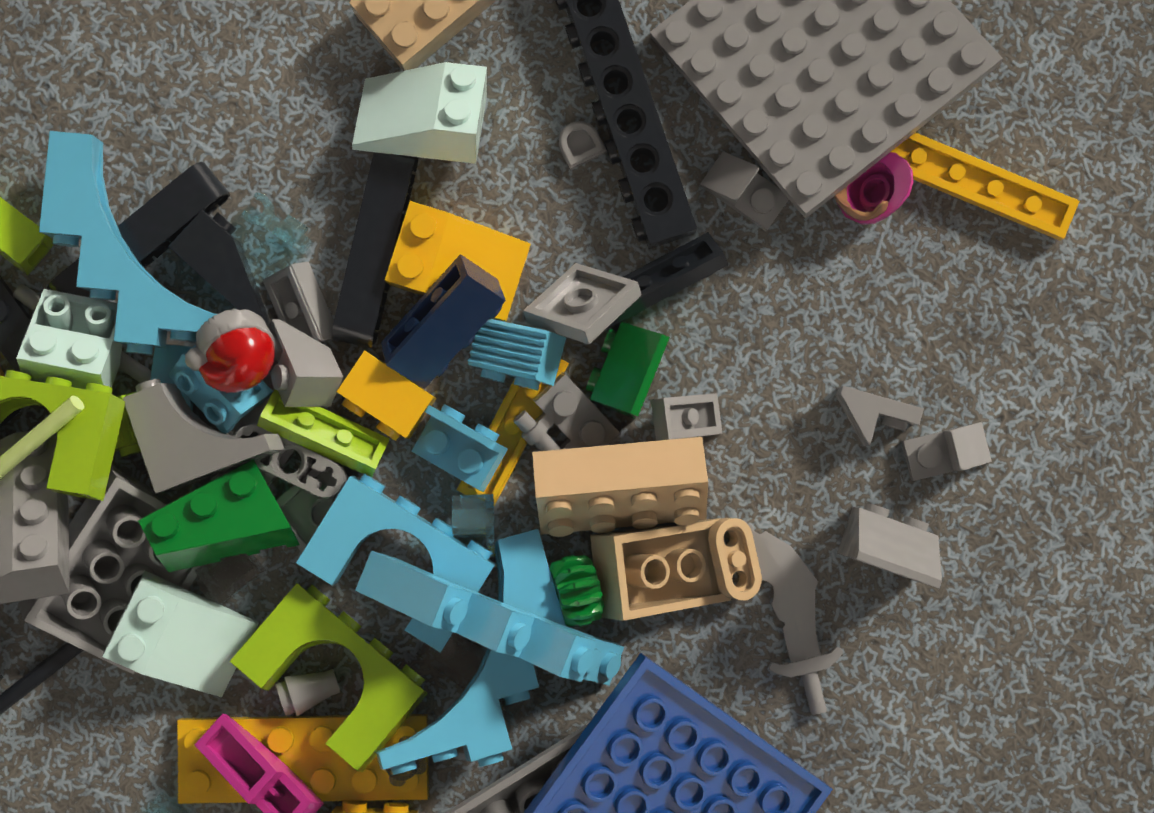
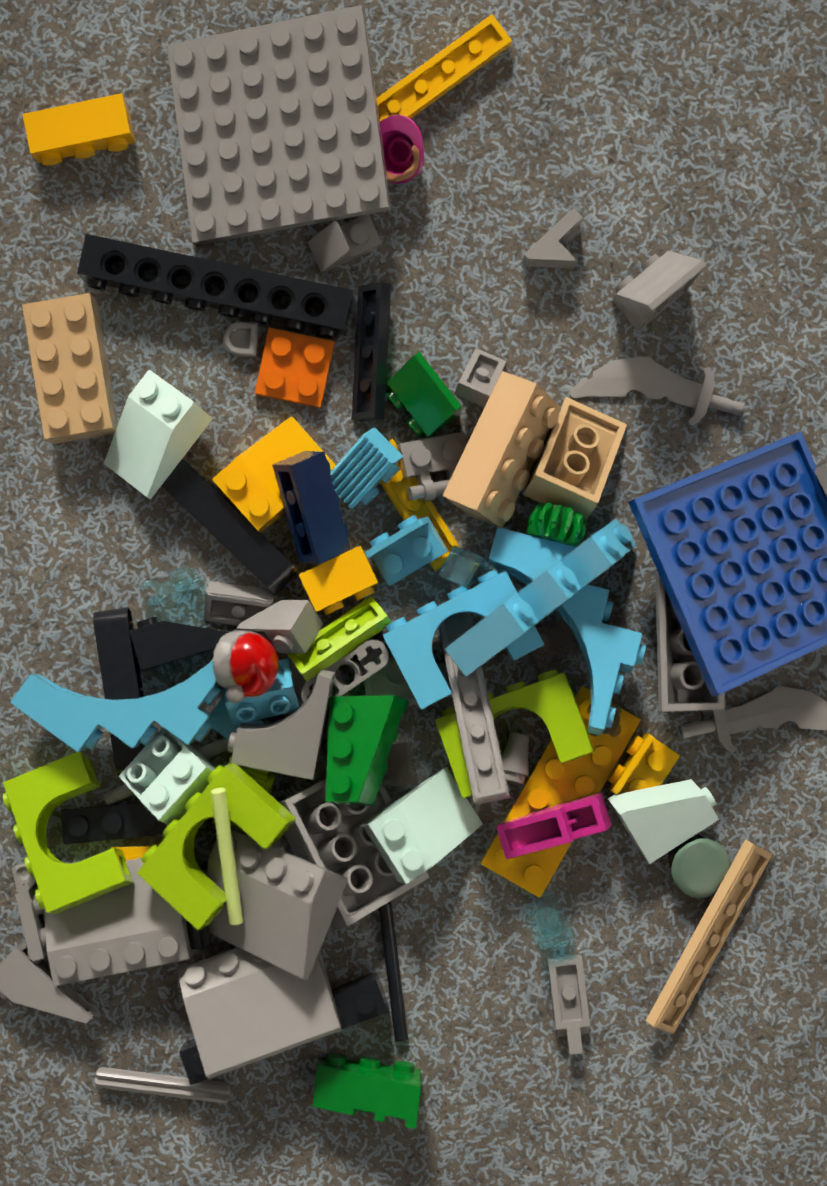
camera: 60 degrees left, 0 degrees up
(315, 627) = (474, 719): none -> light grey tile
(582, 217) = (294, 368): none -> orange plate
(582, 303) = (357, 400): light grey plate -> none
(734, 557) = (599, 401): tan plate -> none
(946, 451) = (612, 212): light grey slope -> none

